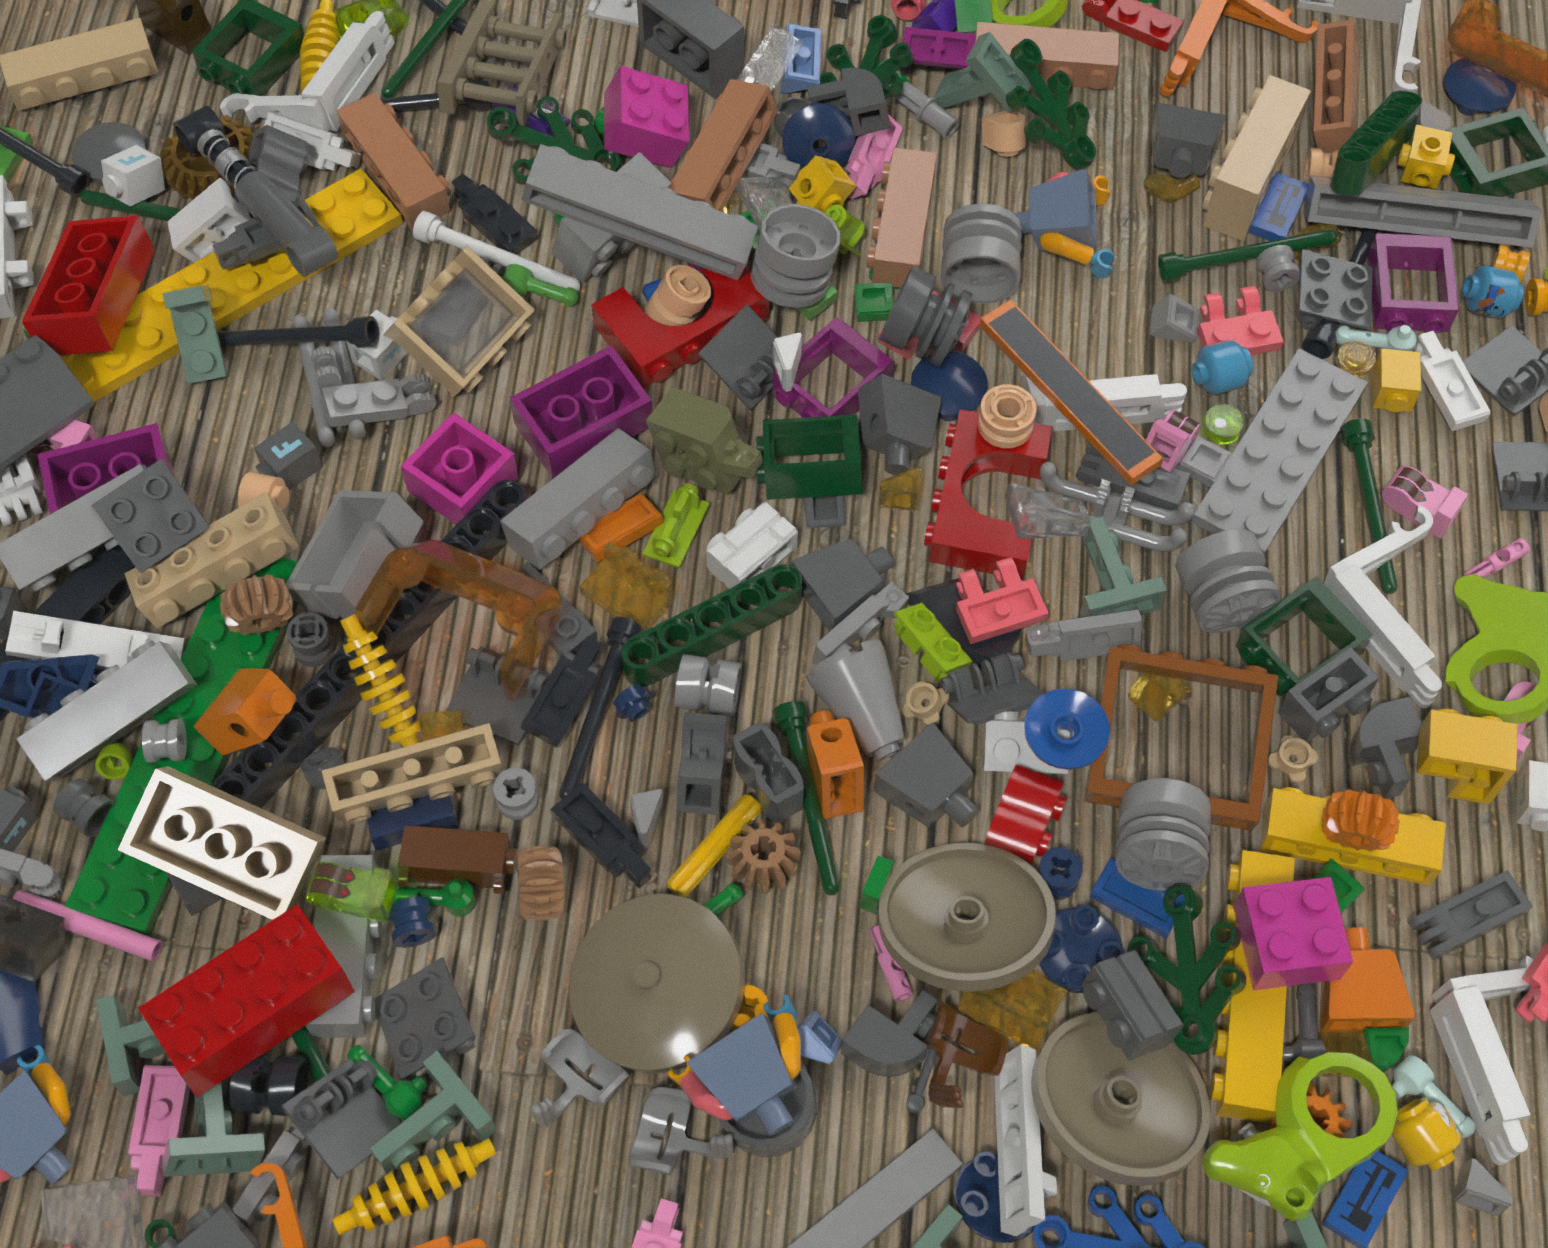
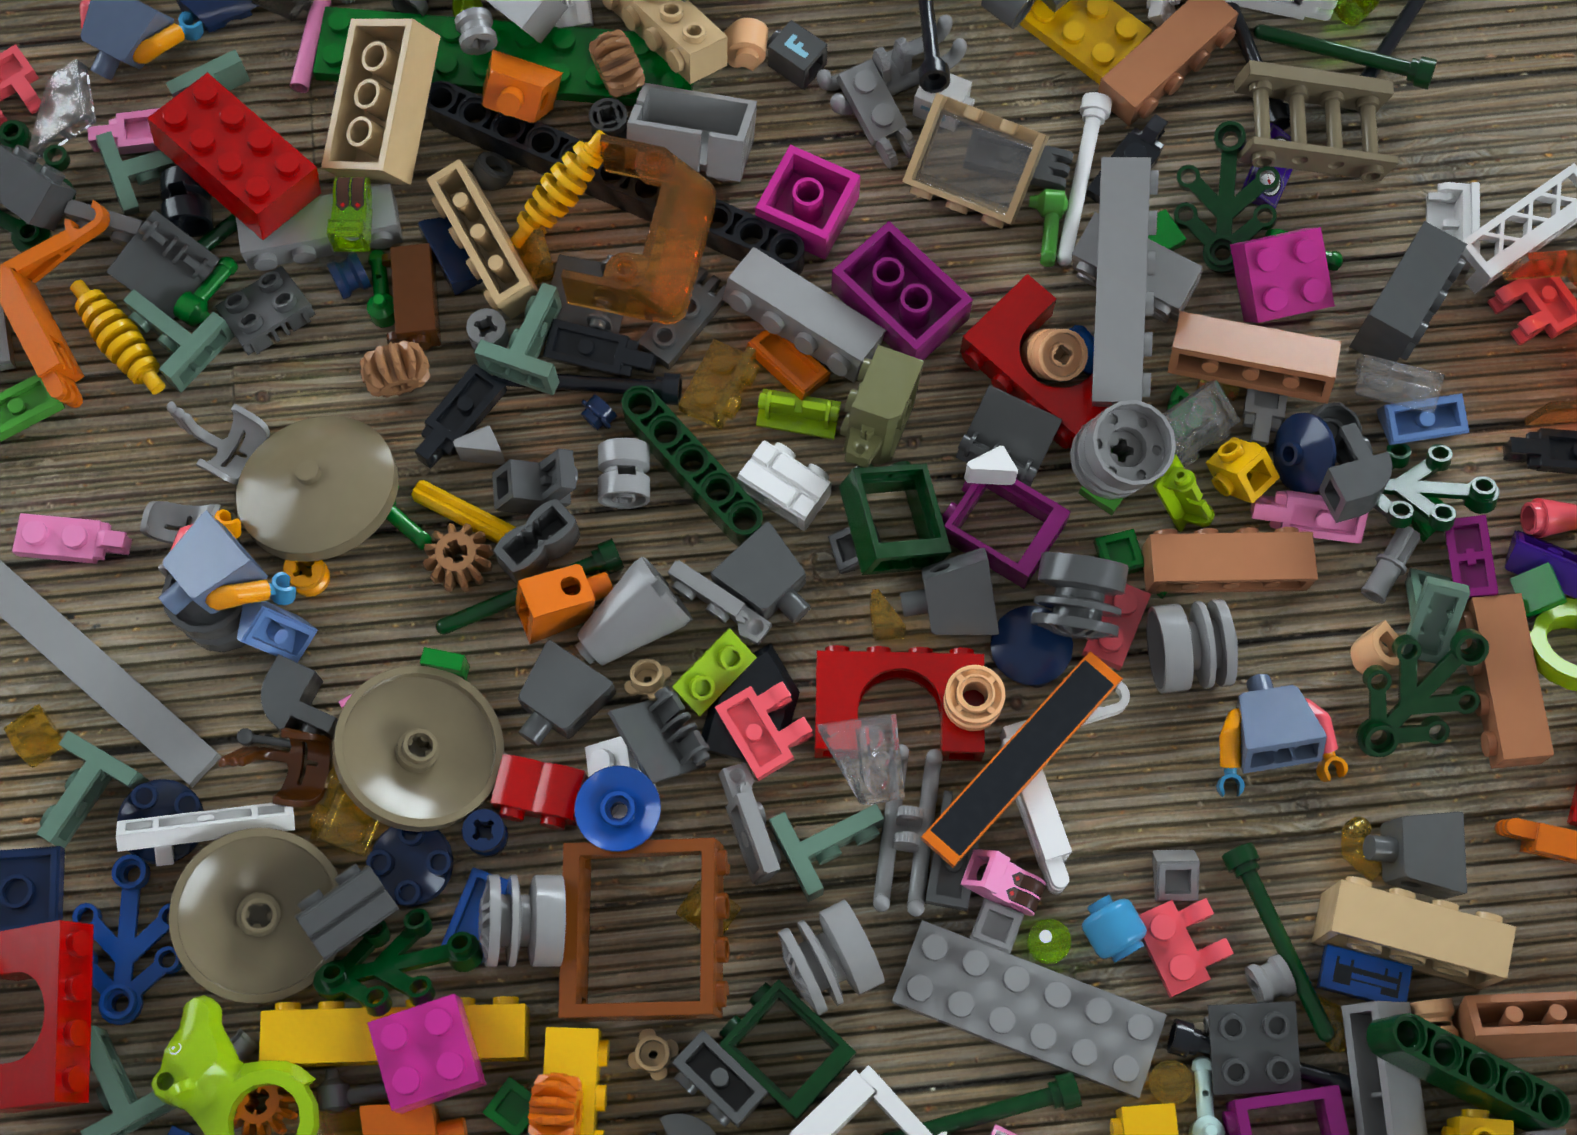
camera: 80 degrees right, 10 degrees up
(562, 759) = (525, 344): none -> sand green bracket

